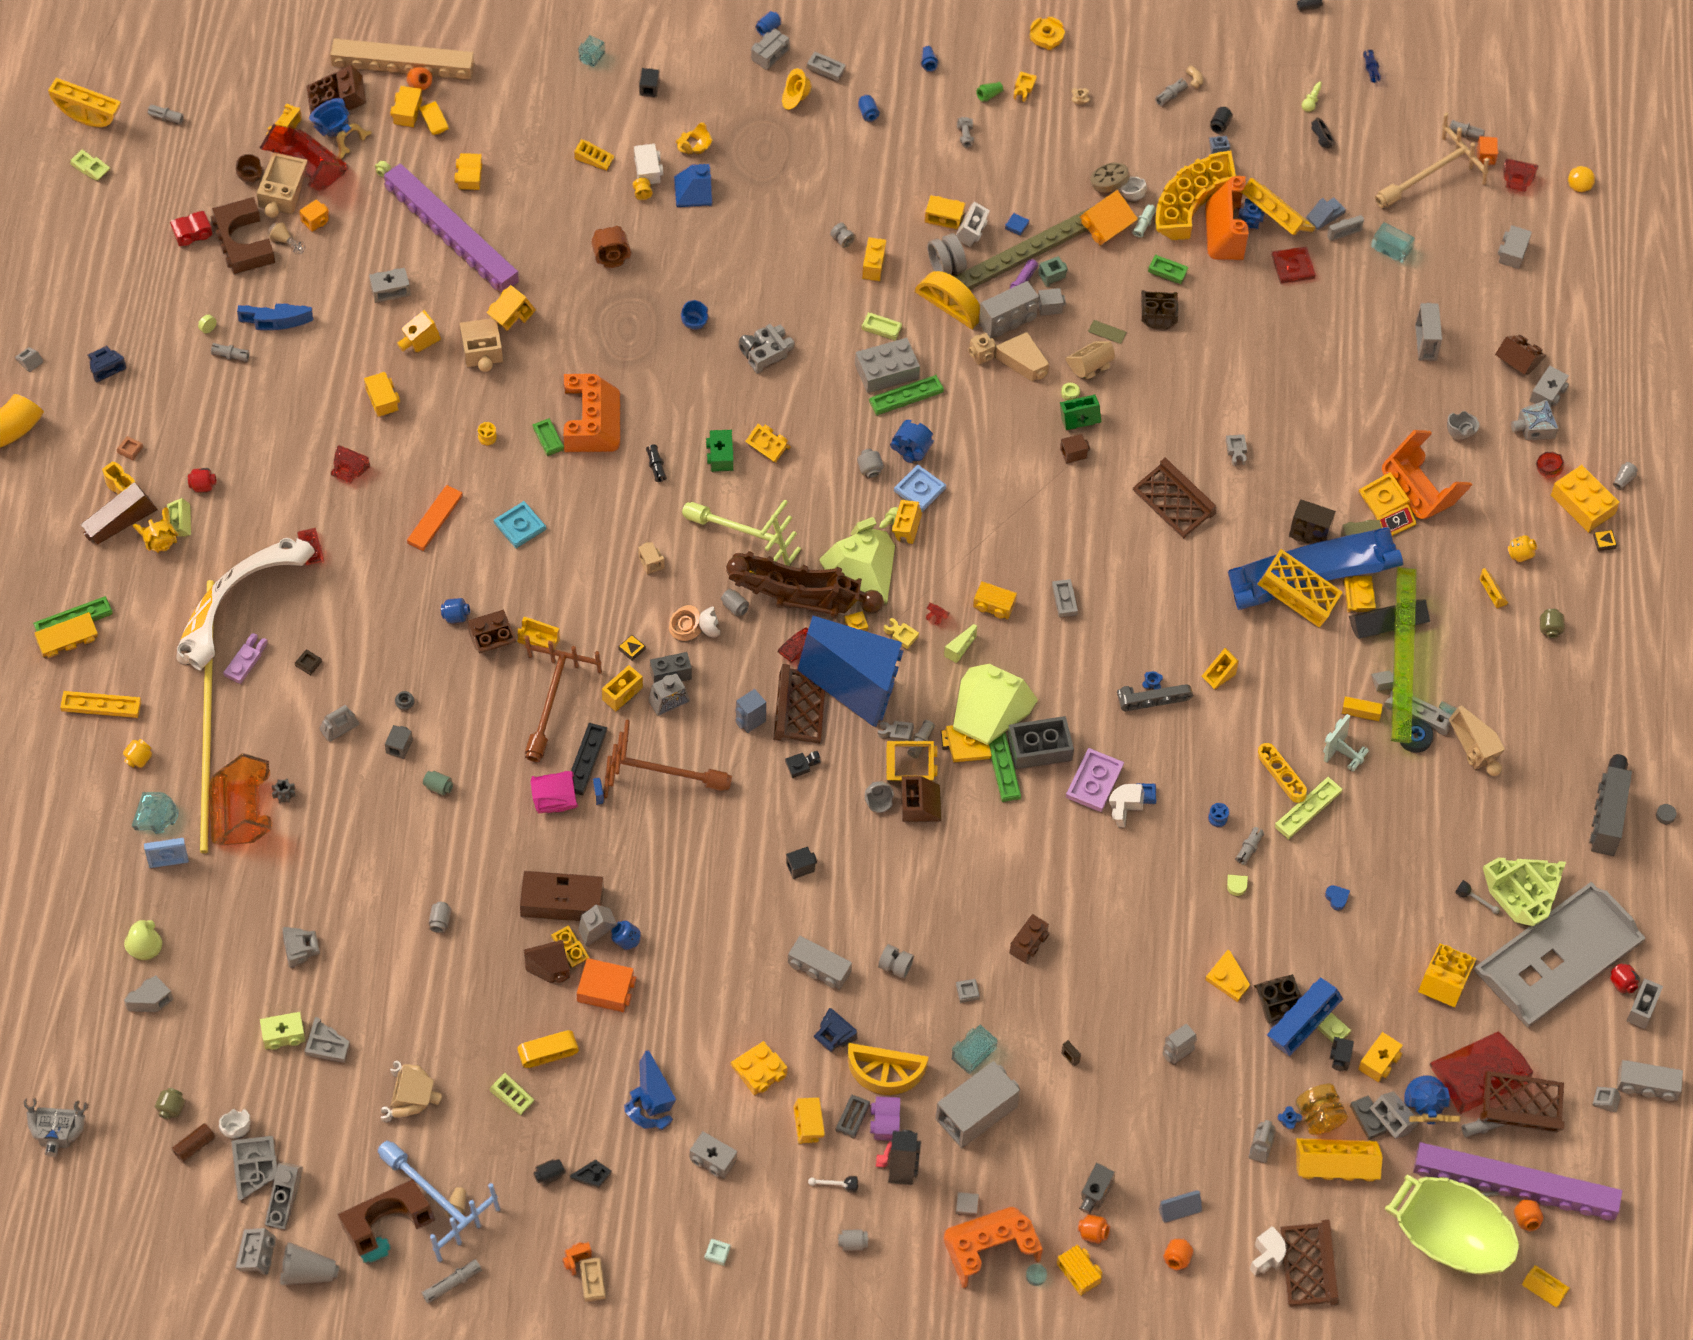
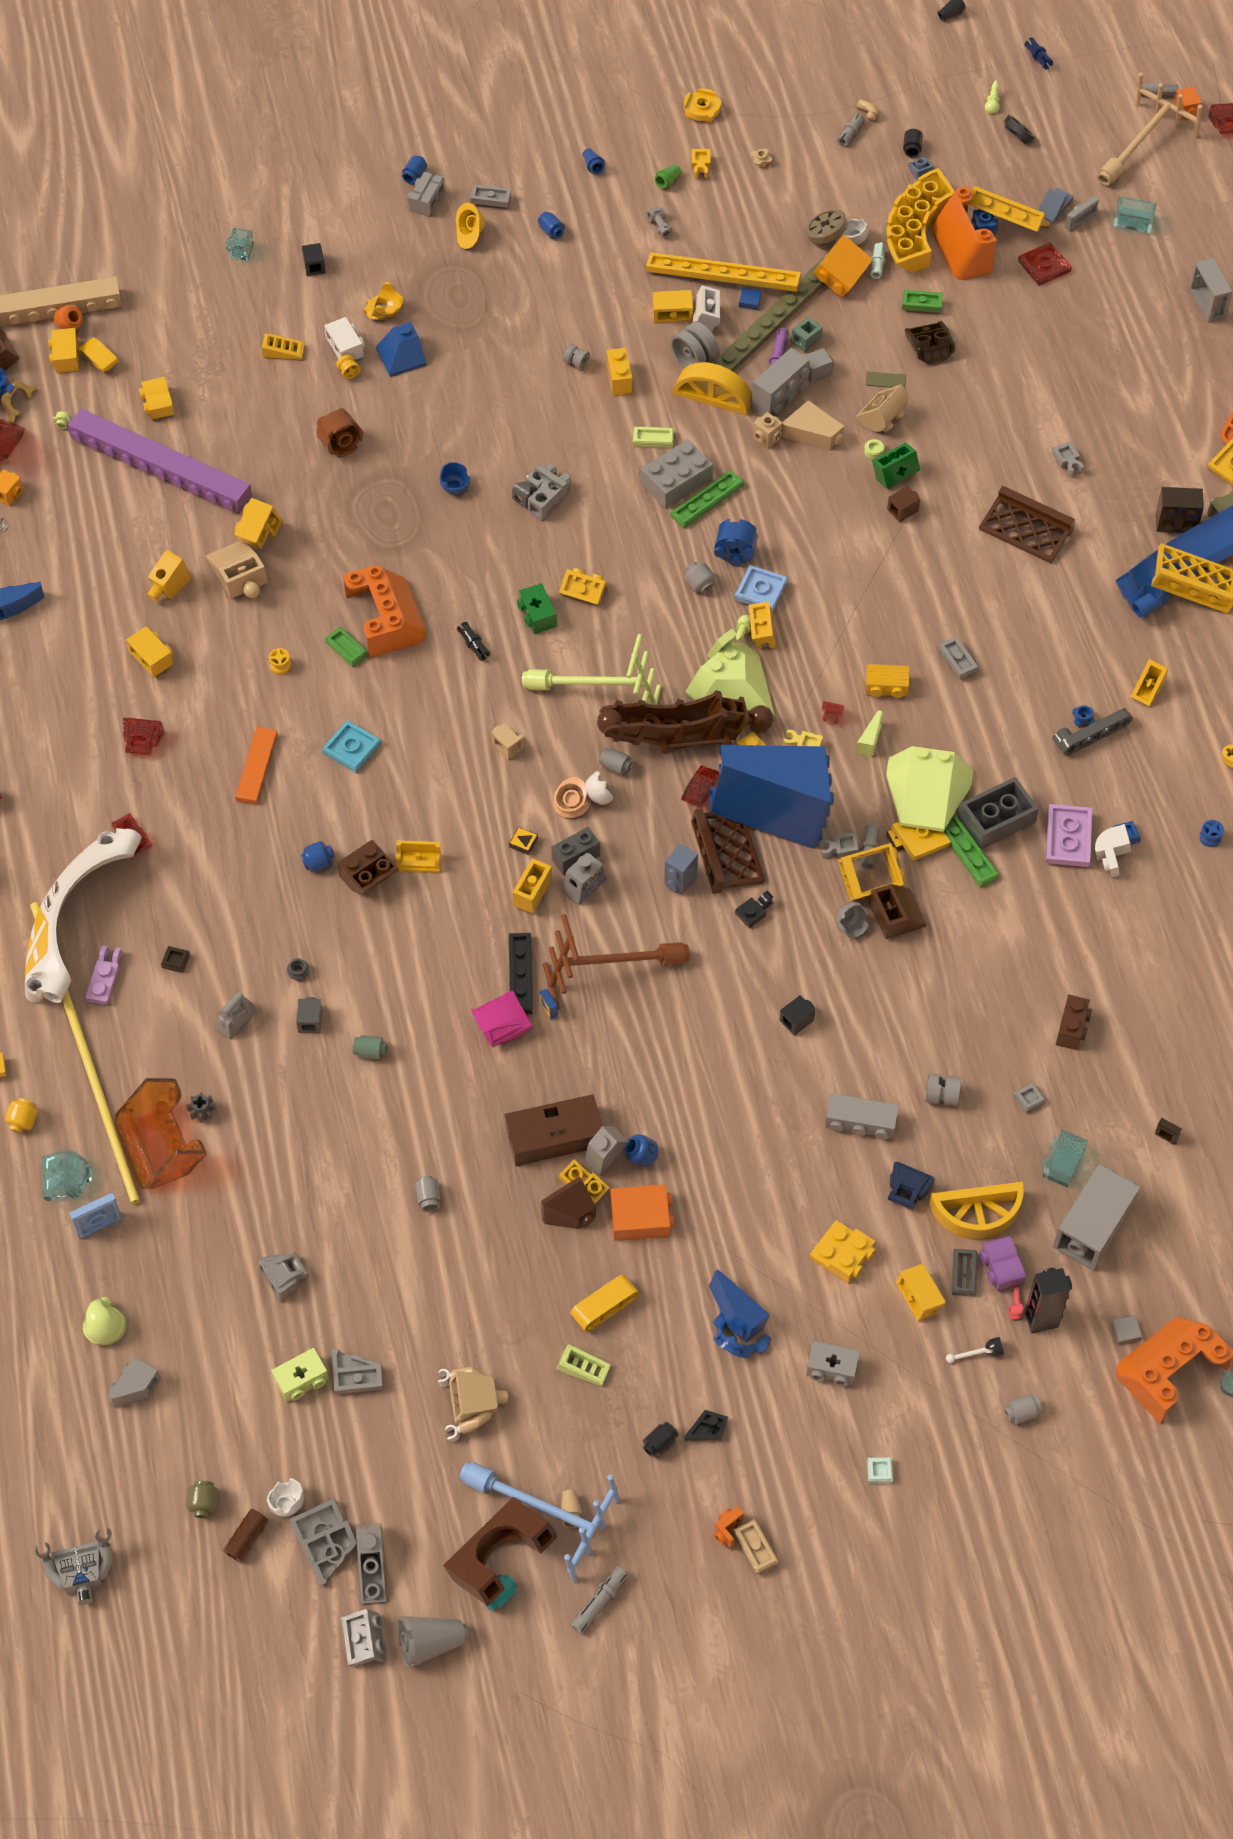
camera: 15 degrees left, 0 degrees up
(389, 285) = (115, 536): light grey brick -> none
(537, 742) = (461, 970): dark orange piece -> none
(1001, 193) = (723, 271): none -> yellow plate

